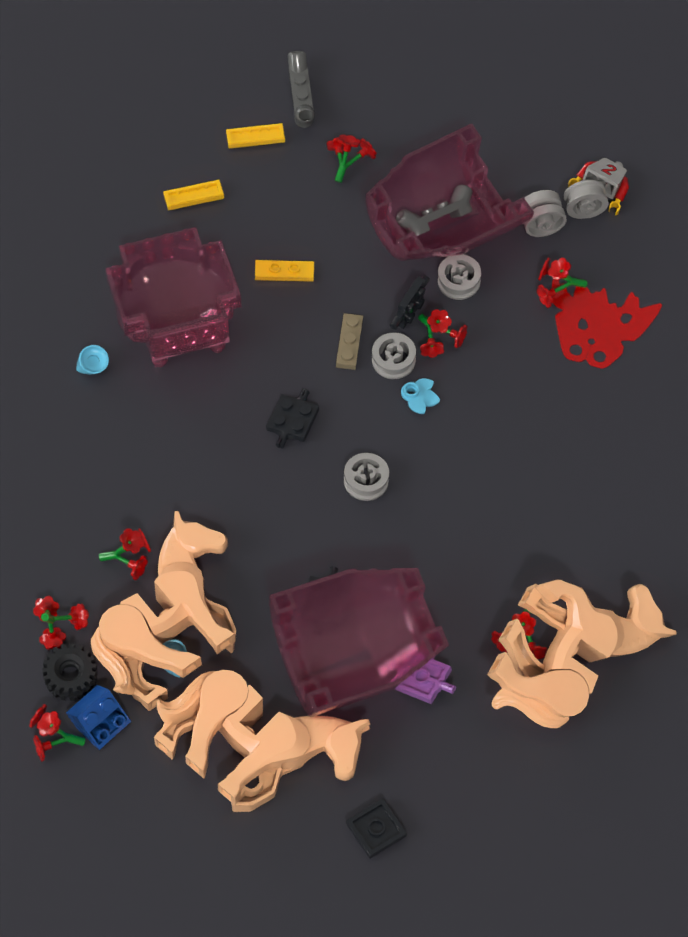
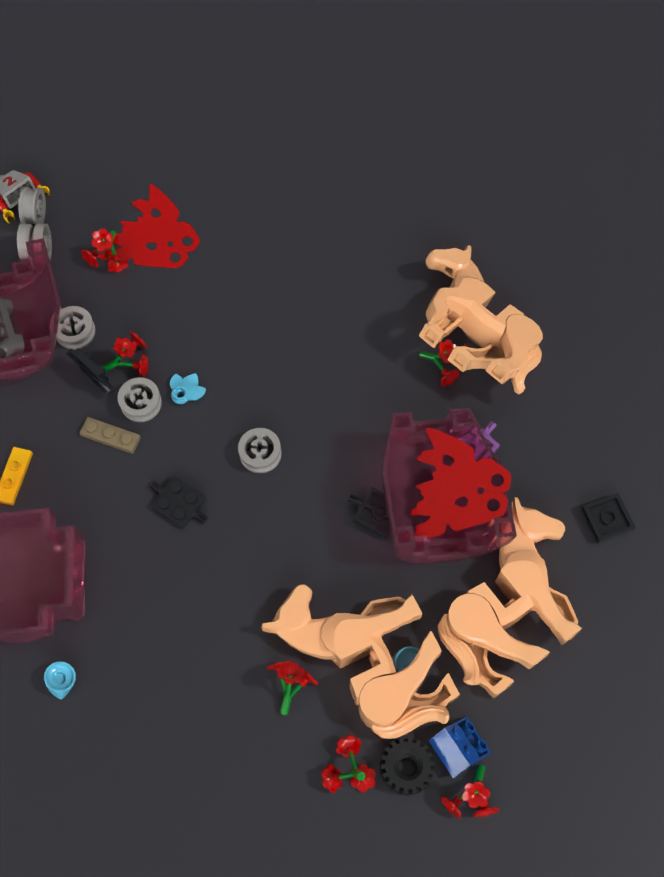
camera: 75 degrees left, 5 degrees up
(363, 651) = (457, 481): none -> red piece

